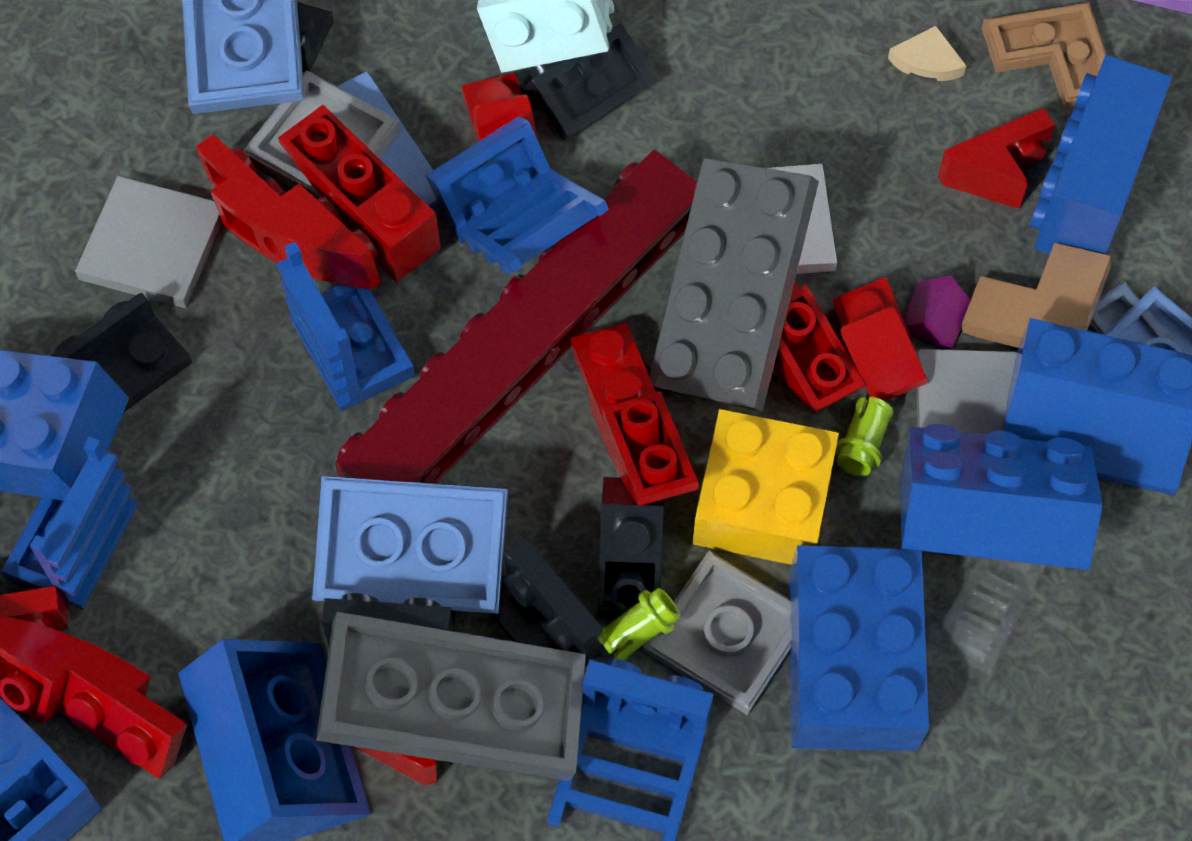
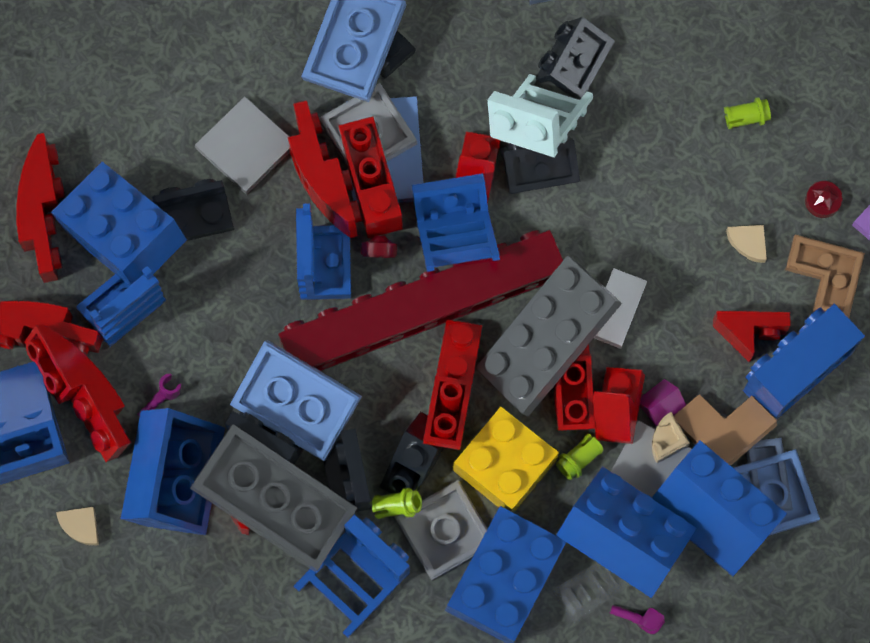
camera: 25 degrees right, 10 degrees up
(200, 635) = (162, 394): none -> magenta hand
(421, 287) = (379, 247): none -> dark red tile
(974, 351) = (668, 438): none -> tan tile
(1096, 616) = (650, 622): none -> magenta hand

